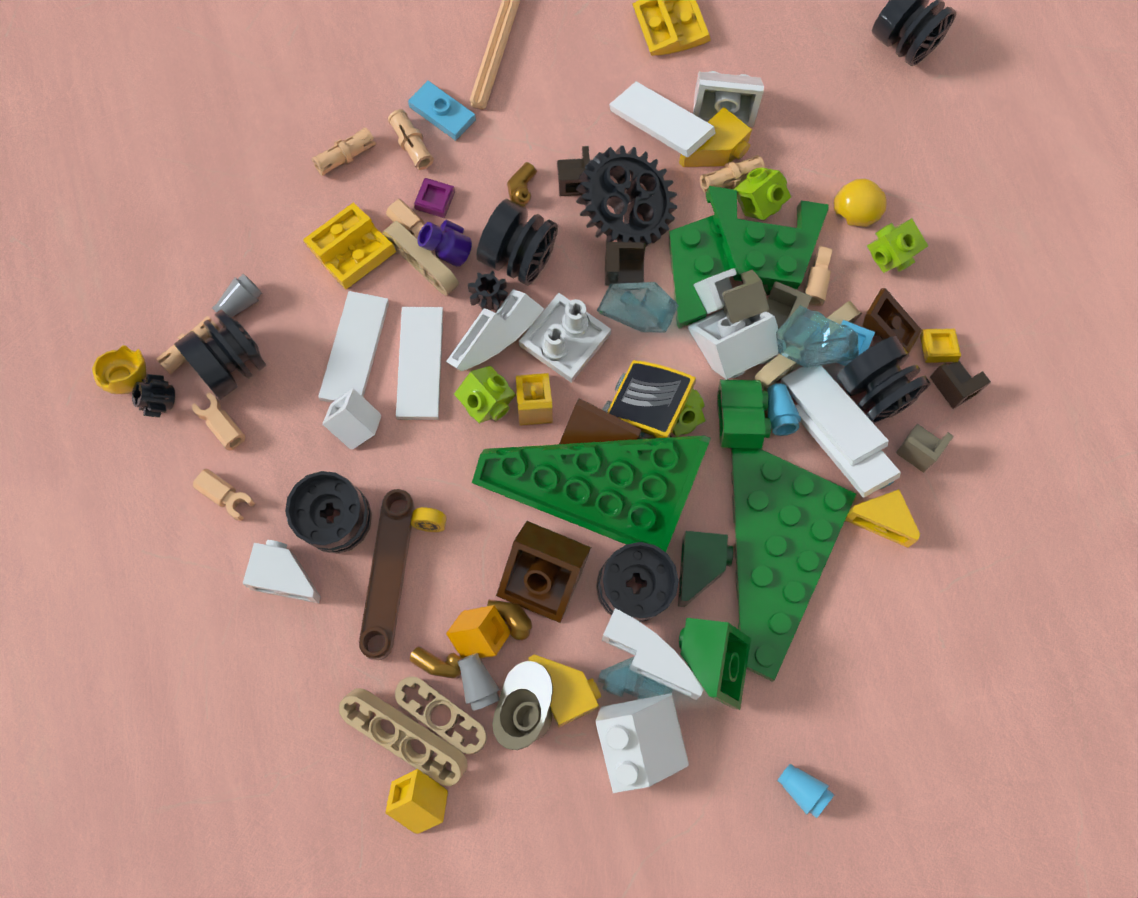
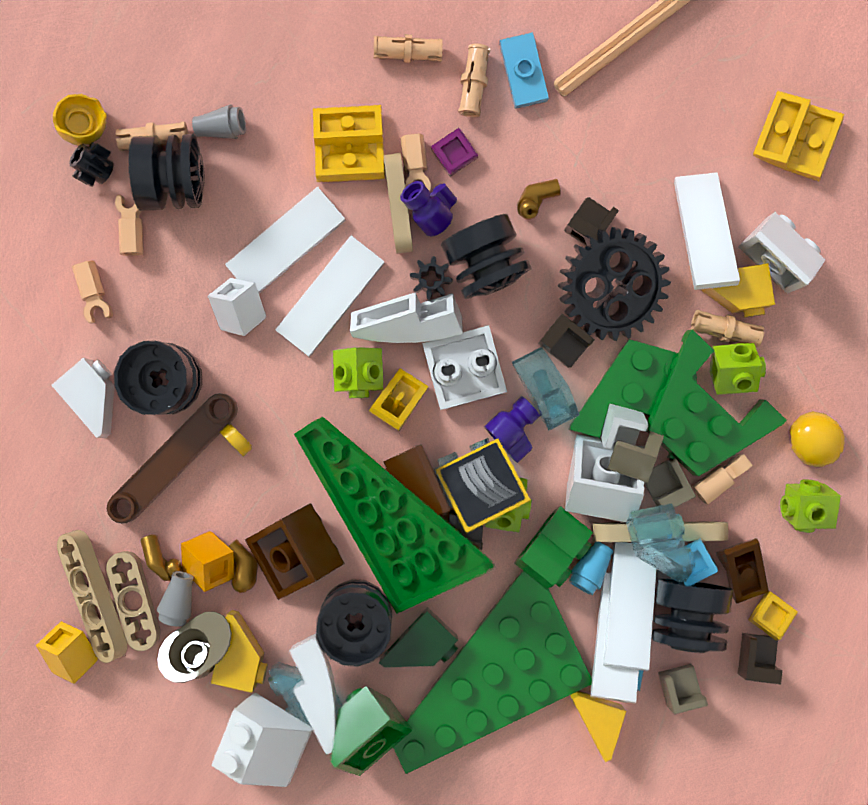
camera: 40 degrees right, 15 degrees up
(634, 347) = (510, 428): none -> dark purple piece

